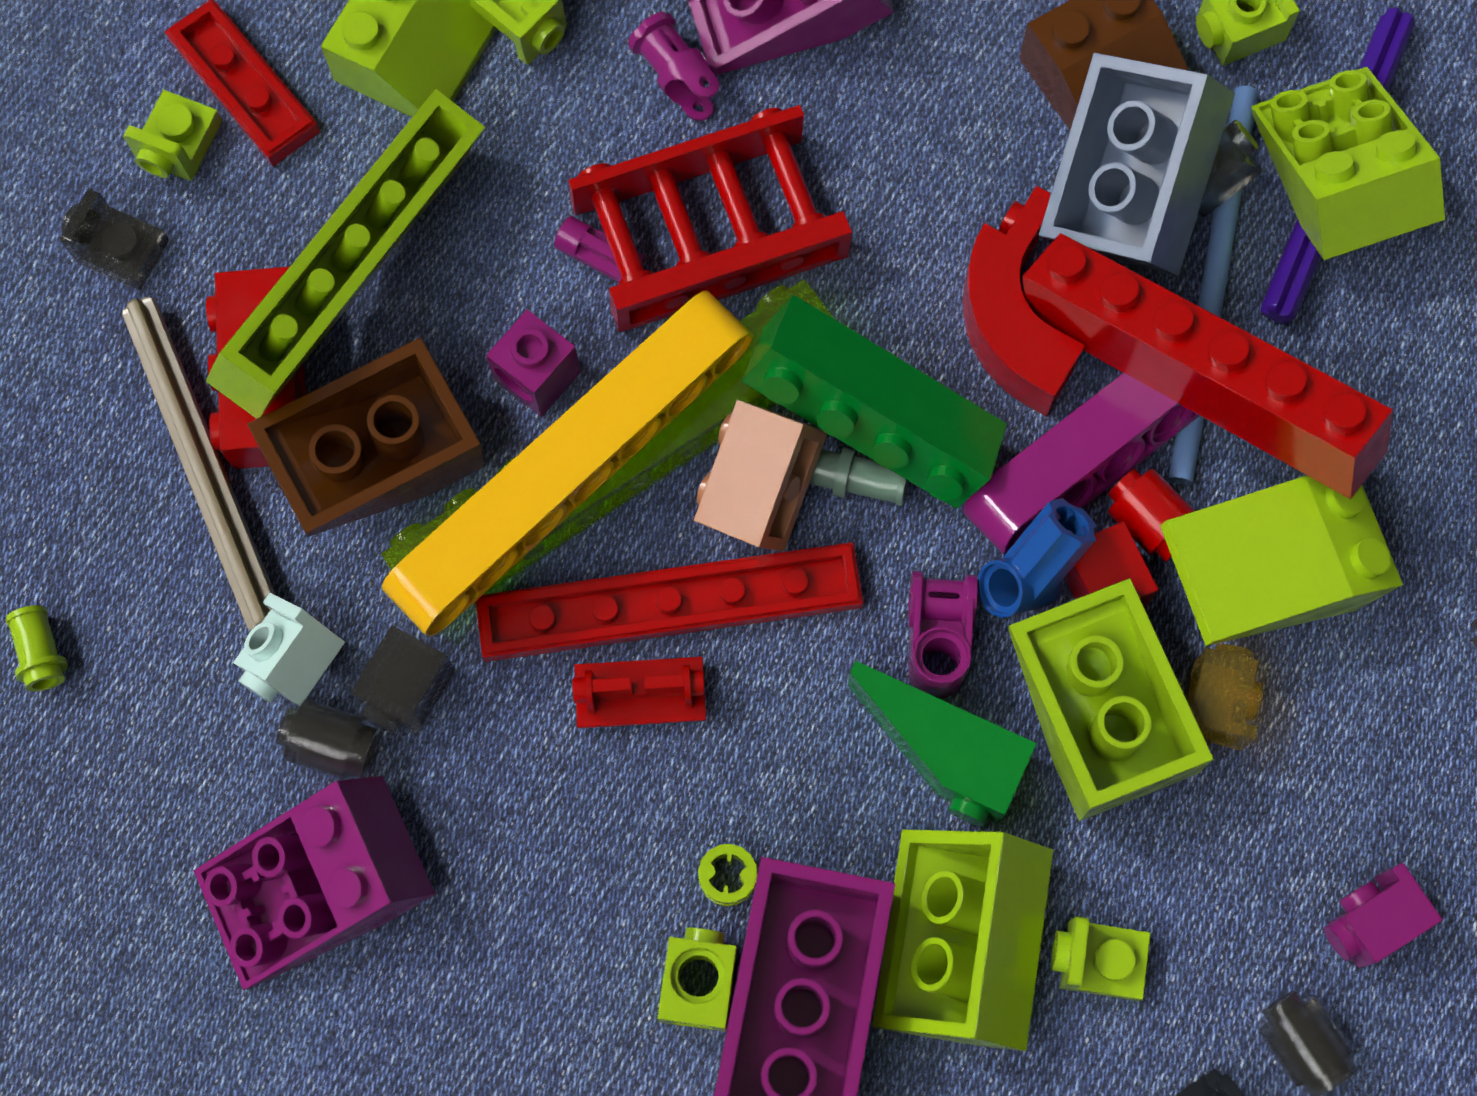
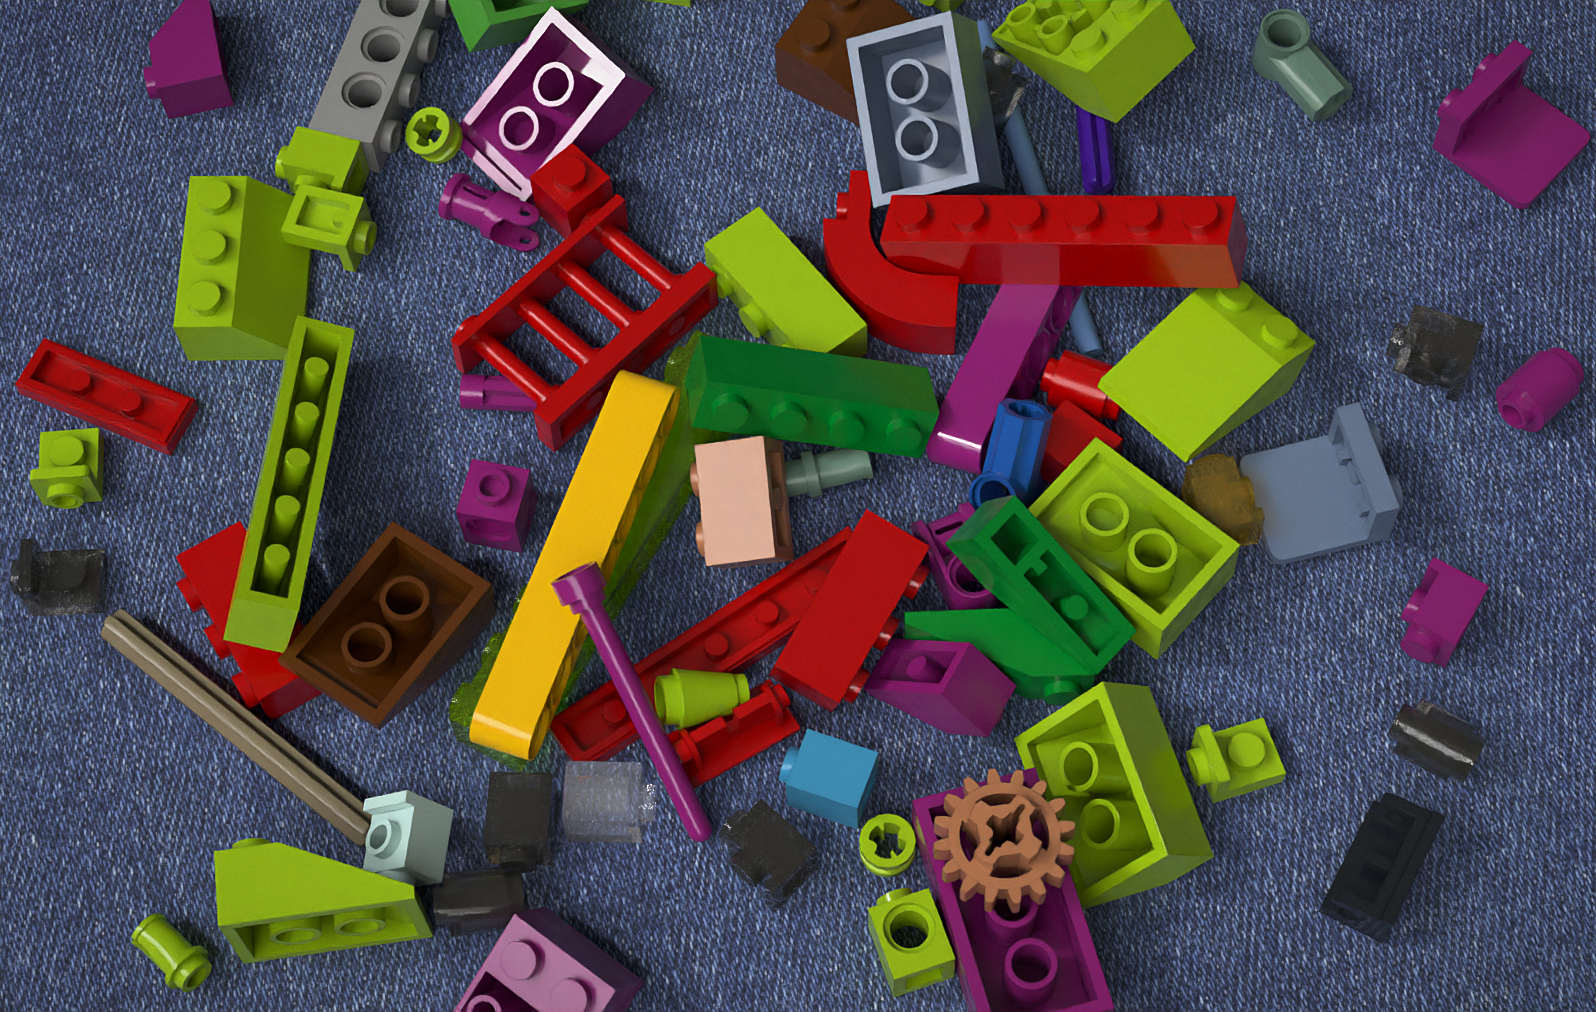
camera: 25 degrees left, 10 degrees down
(138, 653) = (298, 903): none -> lime slope
(489, 703) = (607, 802): none -> clear brick
(548, 504) = (584, 595): none -> magenta piece
(610, 828) = (768, 852): none -> clear smoke brick
(622, 646) = (697, 696): none -> lime cone
(705, 784) = (830, 778): none -> dark azure brick
(760, 77) = (569, 189): none -> red brick
(807, 919) = (1023, 858): none -> nougat gear
(808, 634) = (852, 613): none -> red brick
(857, 746) = (942, 685): none -> magenta slope
(909, 279) = (781, 290): none -> lime brick
(997, 702) = (1040, 582): none -> green slope
(1332, 734) = (1325, 490): none -> sand blue bracket

